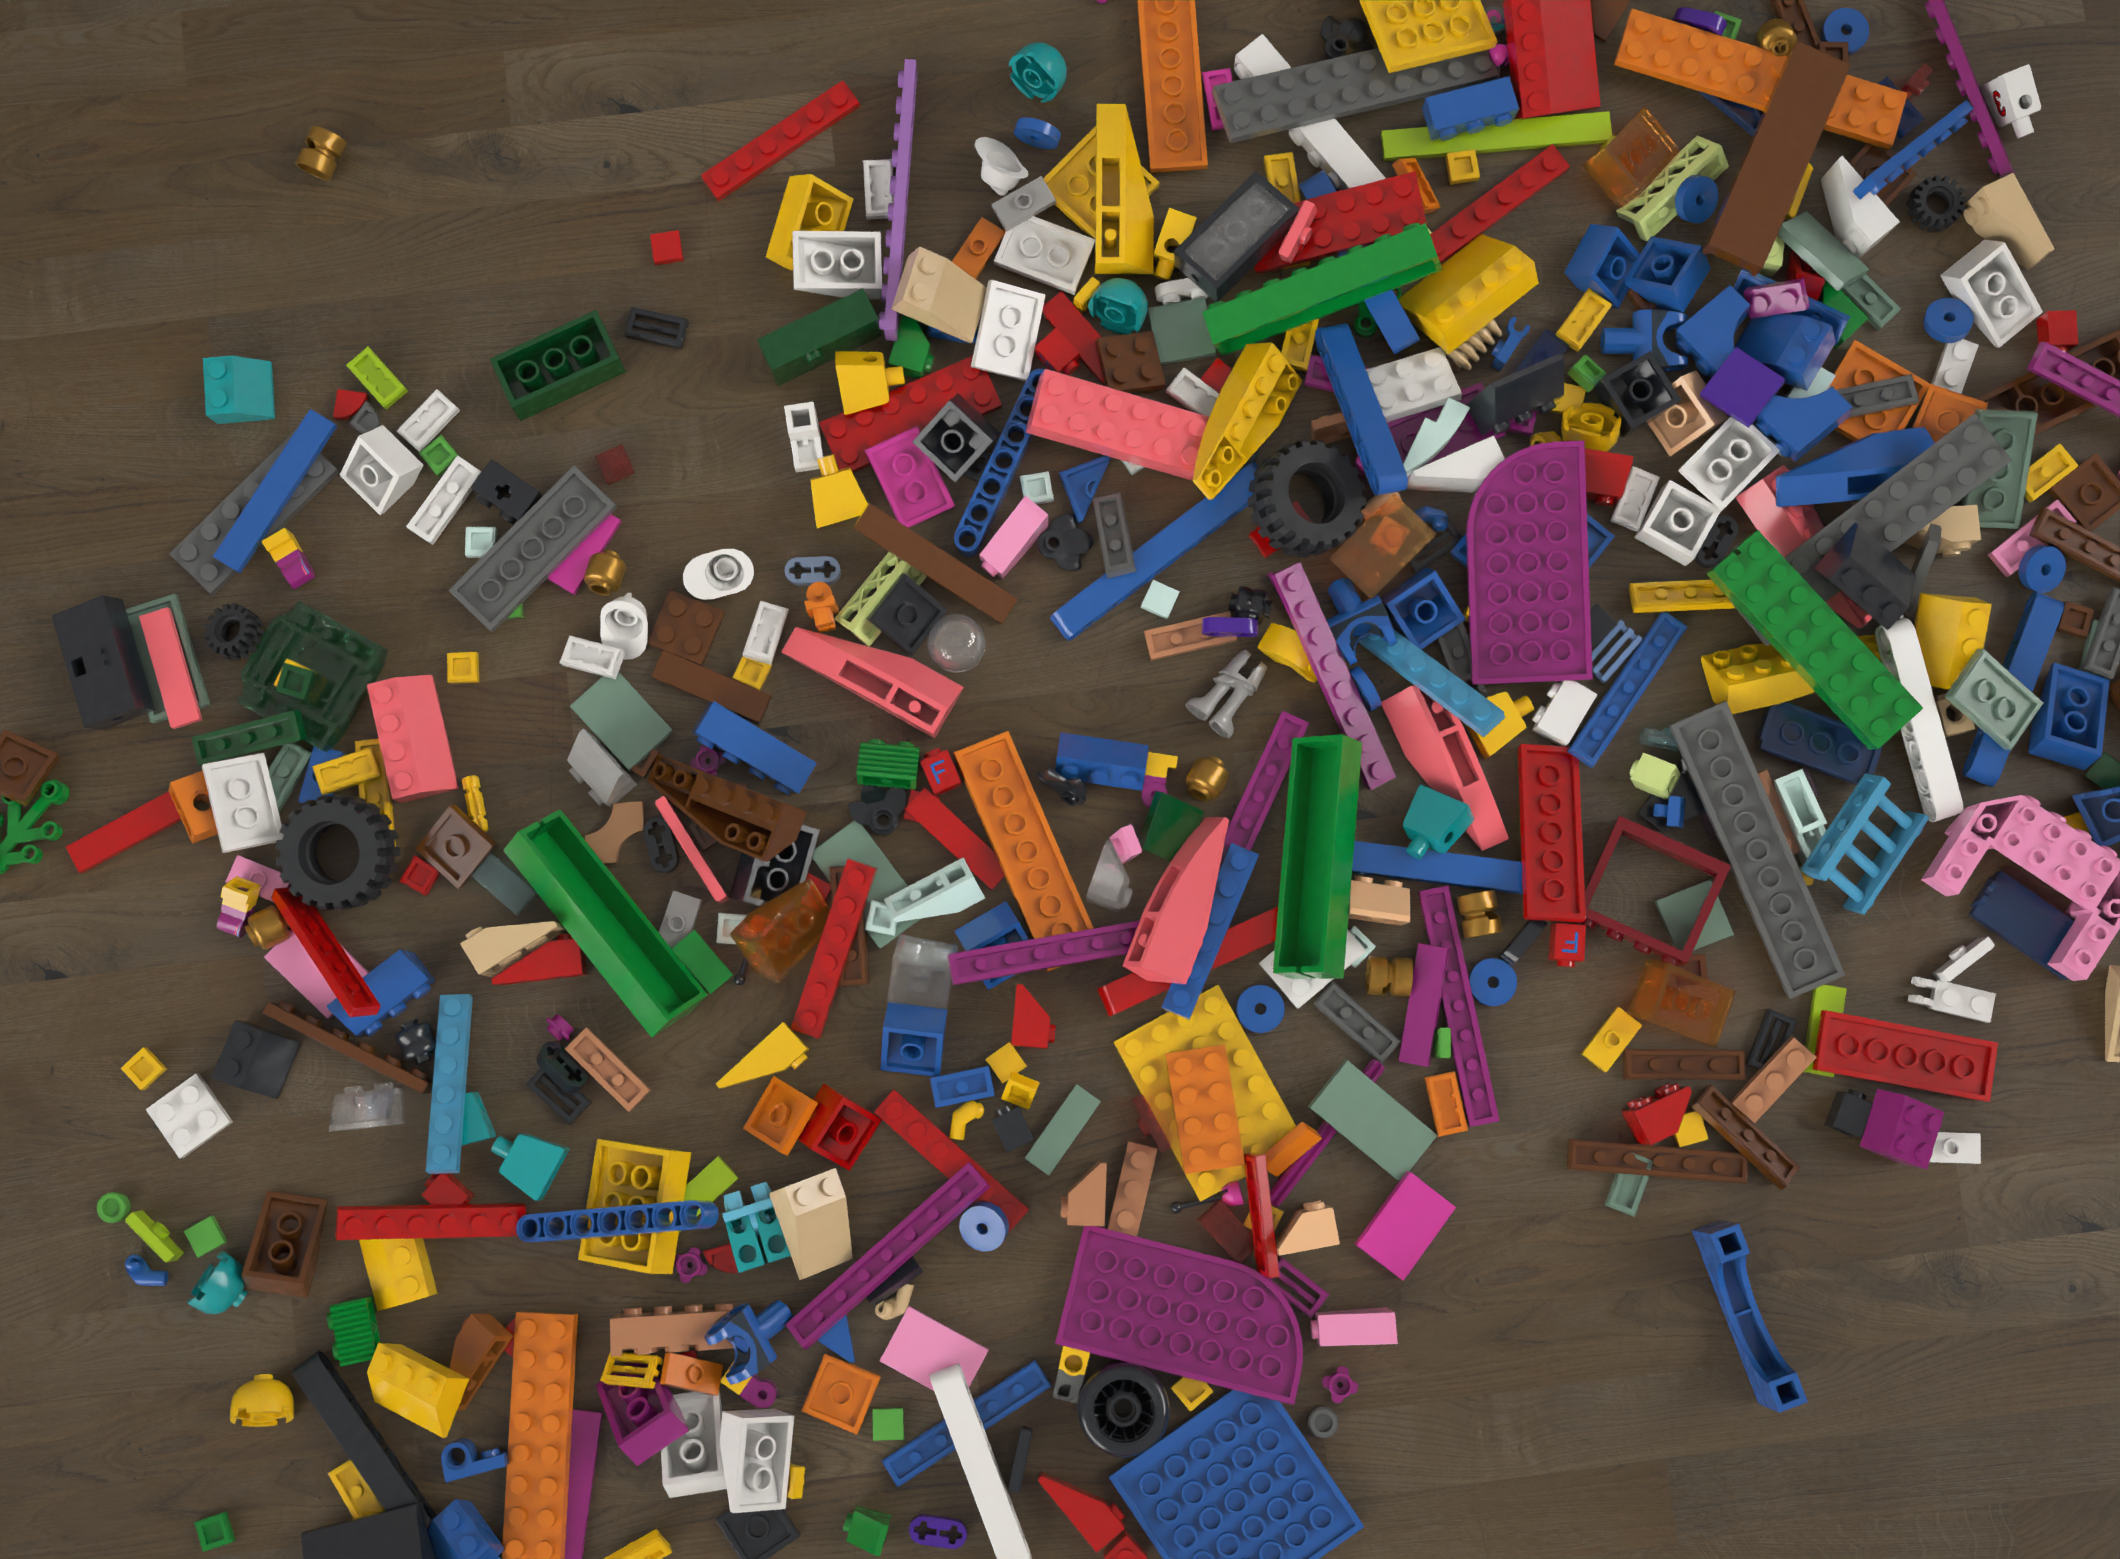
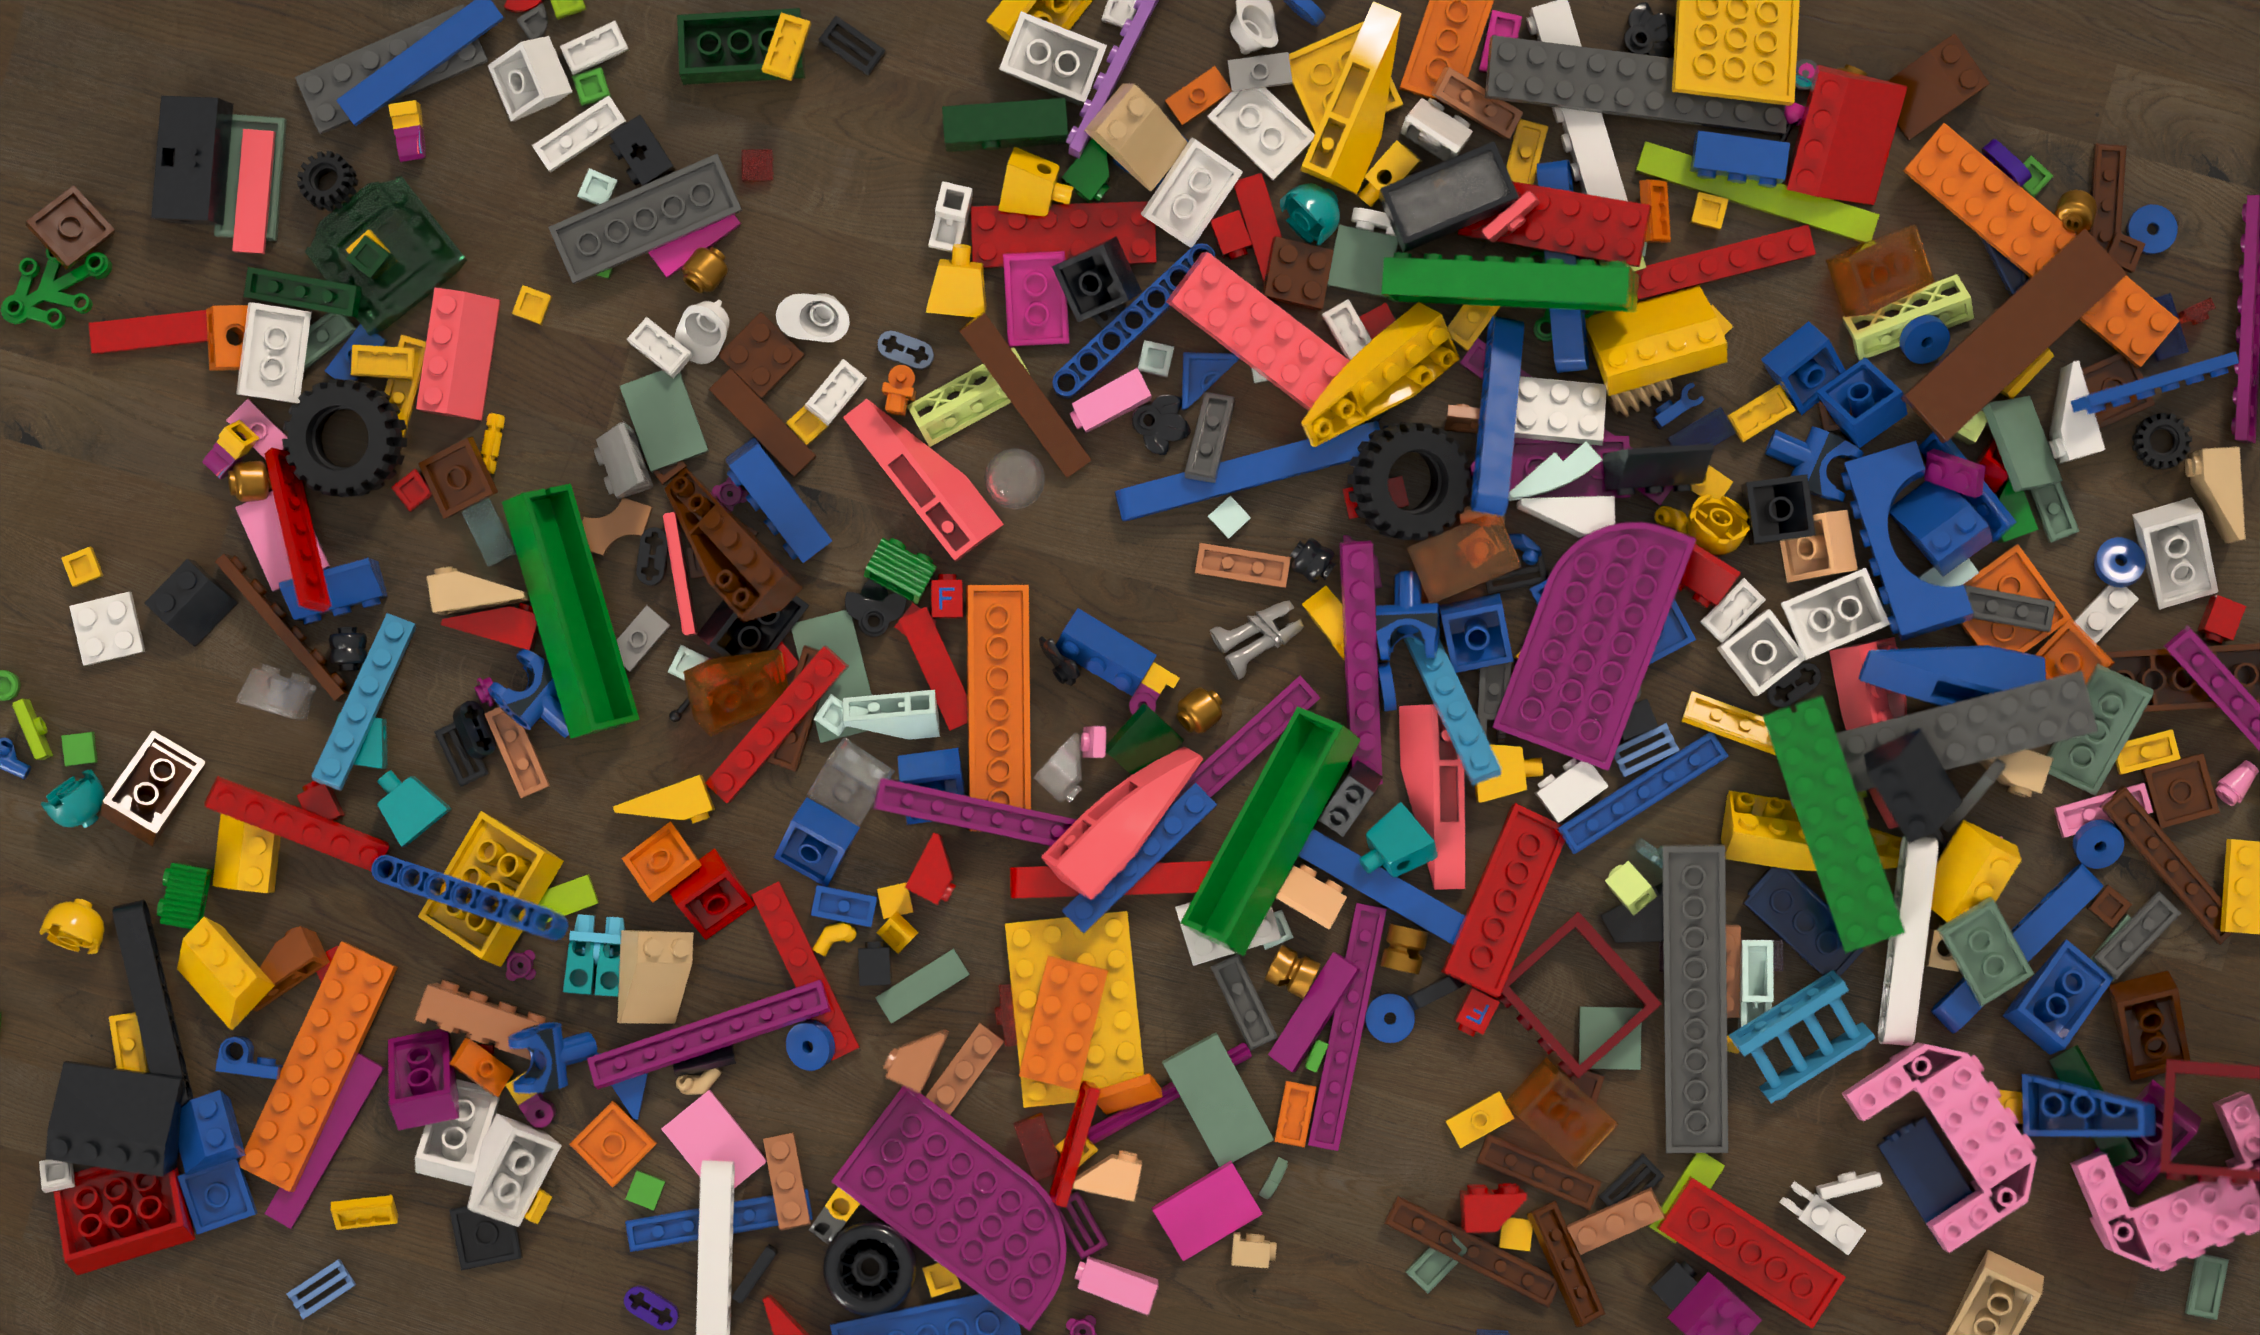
camera: 30 degrees right, 5 degrees up
(597, 344) = (786, 46): none -> yellow plate
(608, 1016) = (538, 698): none -> blue connector
(649, 1372) = (443, 1050): yellow tile -> none
(702, 961) = (646, 684): green tile -> none
(722, 1258) = (552, 972): red tile -> none
(867, 1529) = (587, 1277): green slope -> none
(906, 614) = (978, 431): black tile -> none
(1014, 1361) = (787, 1181): none -> nougat plate
(1083, 297) = (1281, 188): yellow tile -> none
(1197, 192) = (1436, 130): none -> white slope
(1221, 155) = (1470, 100): none -> nougat plate
(1229, 627) = (1282, 574): dark purple beam -> none
(1229, 1194) = (1054, 1113): hinge -> none
(1273, 1009) = (1157, 936): blue piece -> none
(1375, 799) = (1350, 798): none -> black brick
(1452, 1170) = (1273, 1178): none -> sand green tile
(1461, 1245) = (1252, 1251): none -> tan brick
(1586, 373) = (1740, 467): bright green tile -> none
(1673, 811) = (1633, 928): blue tile -> none
(1742, 387) = (1878, 548): dark purple tile -> none

